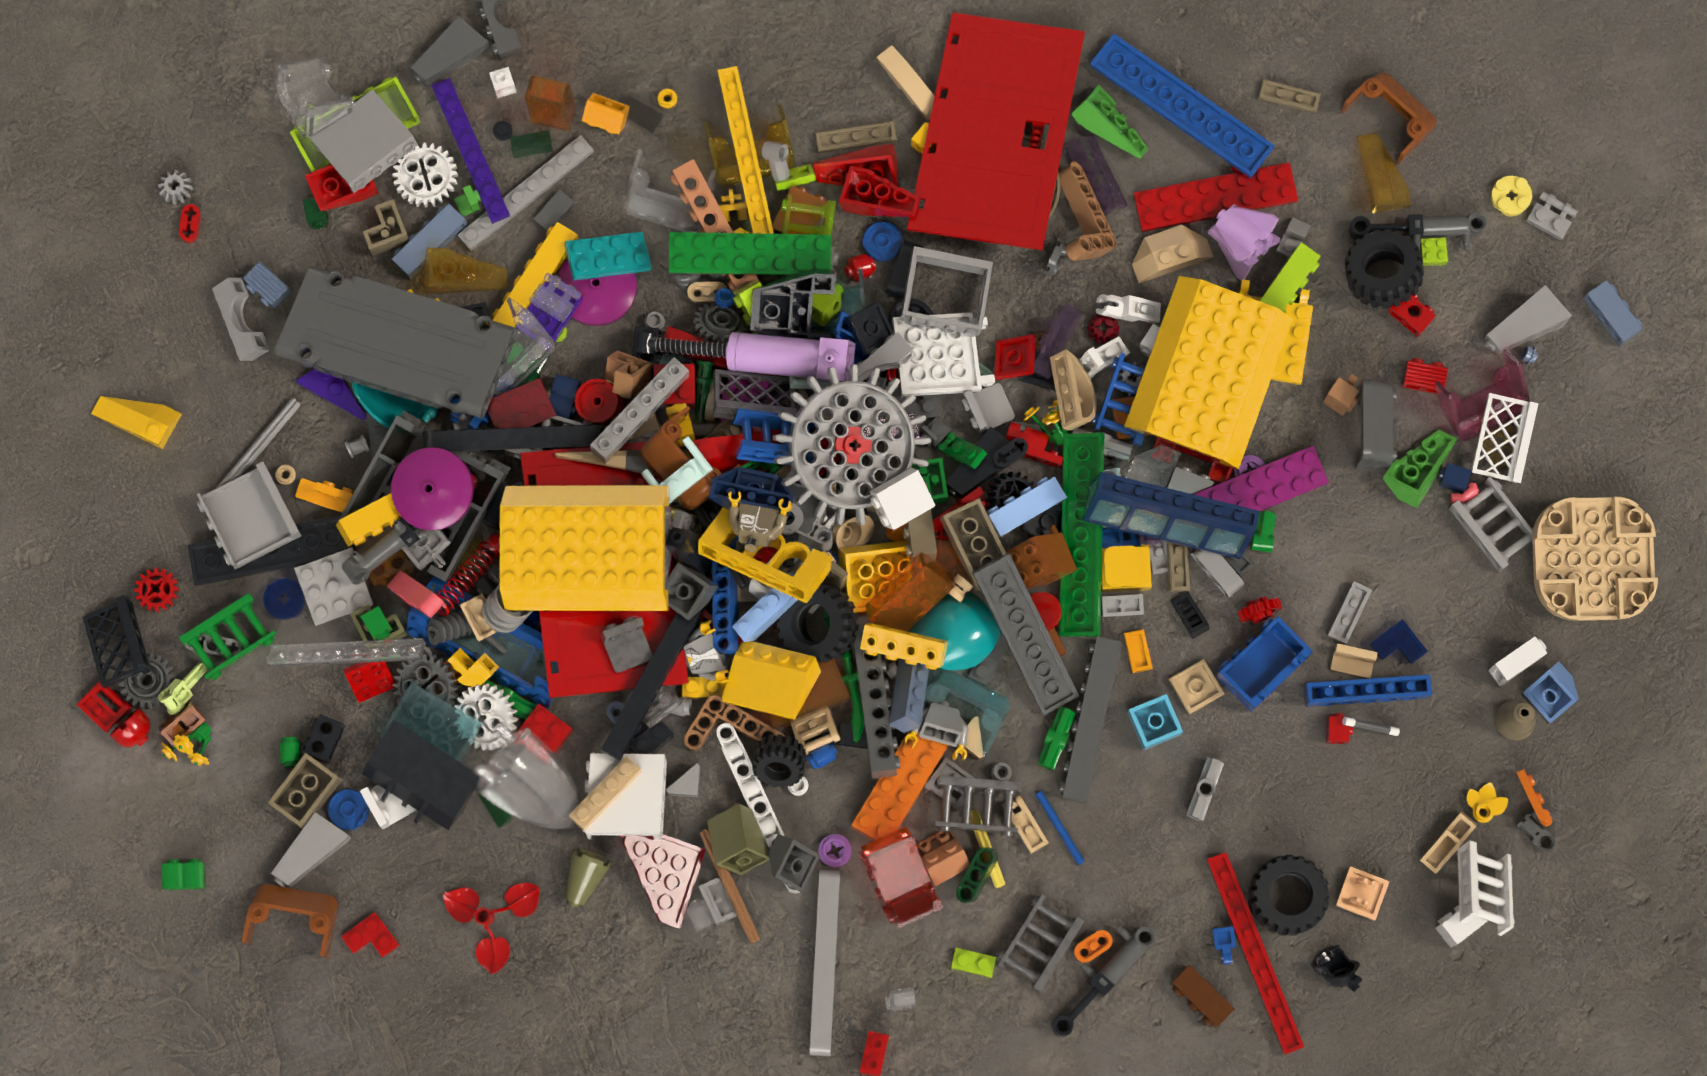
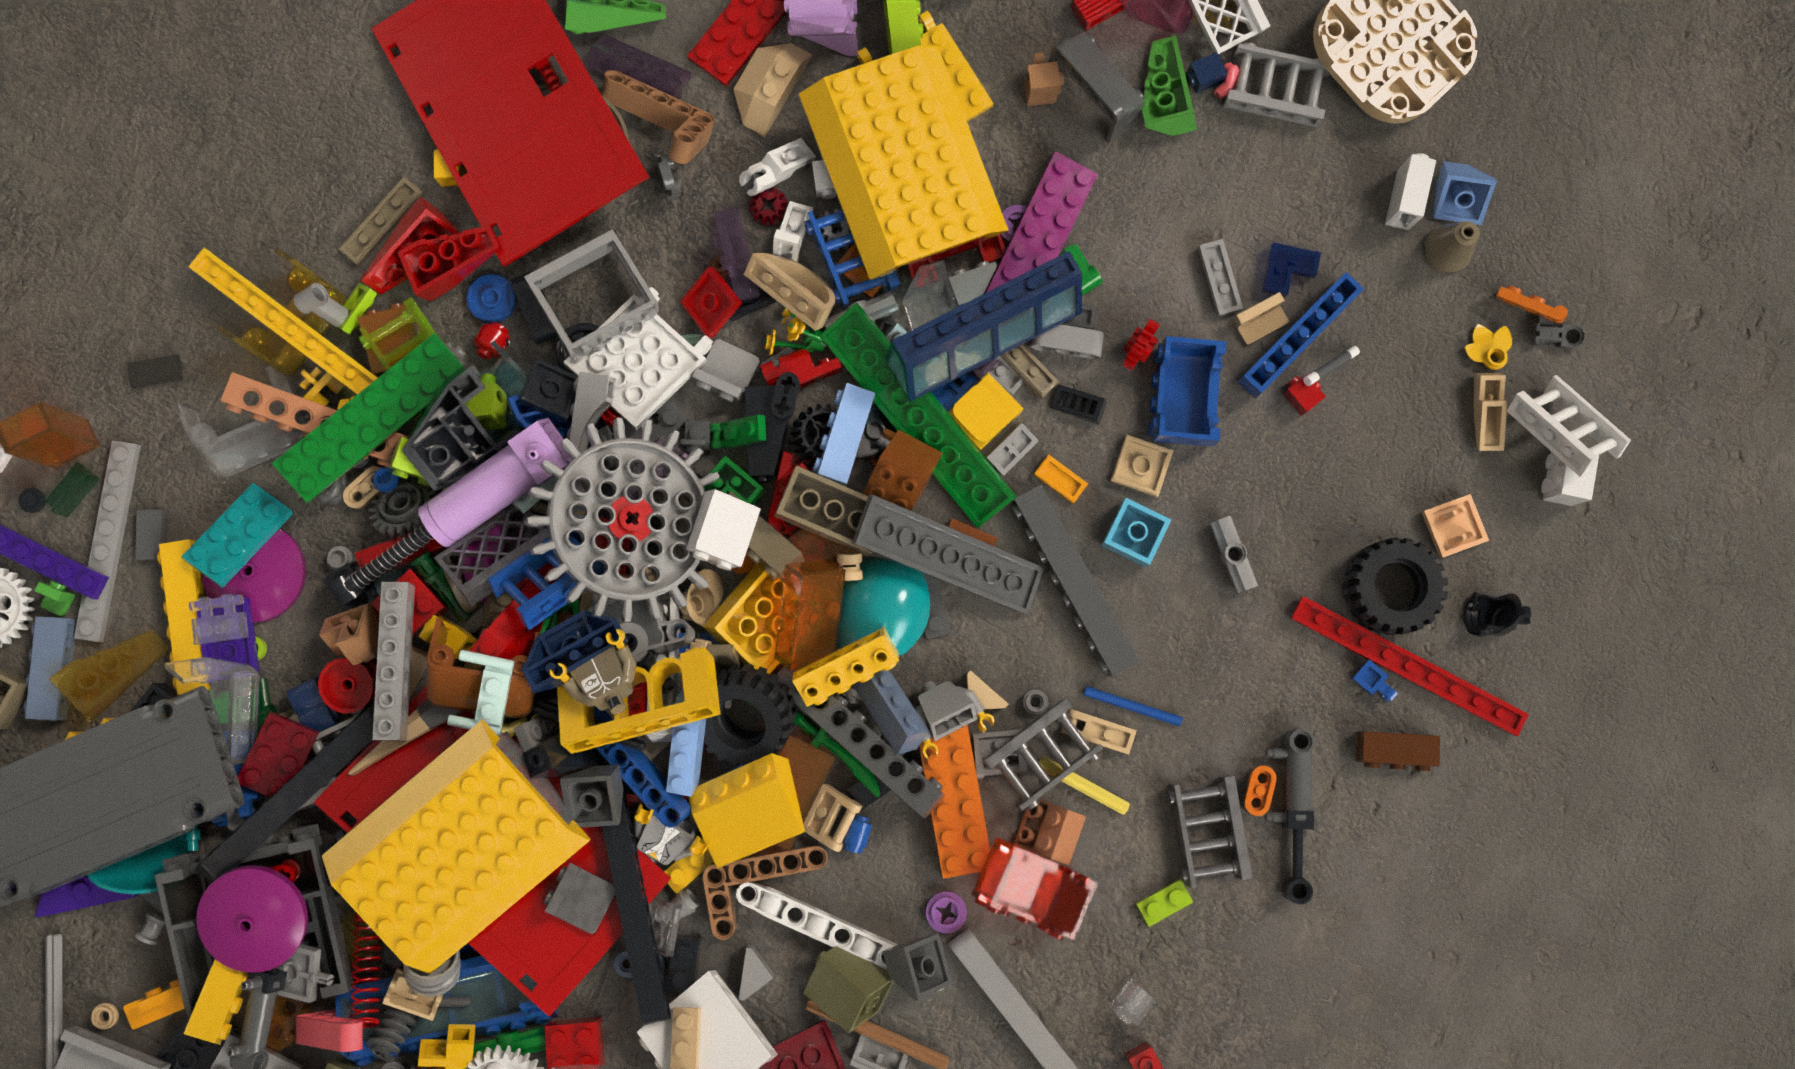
camera: 45 degrees left, 5 degrees up
(605, 113) = (117, 400): light orange brick -> none
(667, 93) = (161, 331): yellow plate -> none
(779, 761) = (822, 878): black tyre -> none
(799, 788) = (858, 881): white plate -> none
(907, 80) = (383, 126): tan slope -> none
(968, 880) = (1103, 831): dark green beam -> none
(994, 704) = (947, 652): clear light blue windscreen -> none
(1048, 608) = (946, 512): red tile -> none
(1056, 738) = (1058, 626): green piece -> none

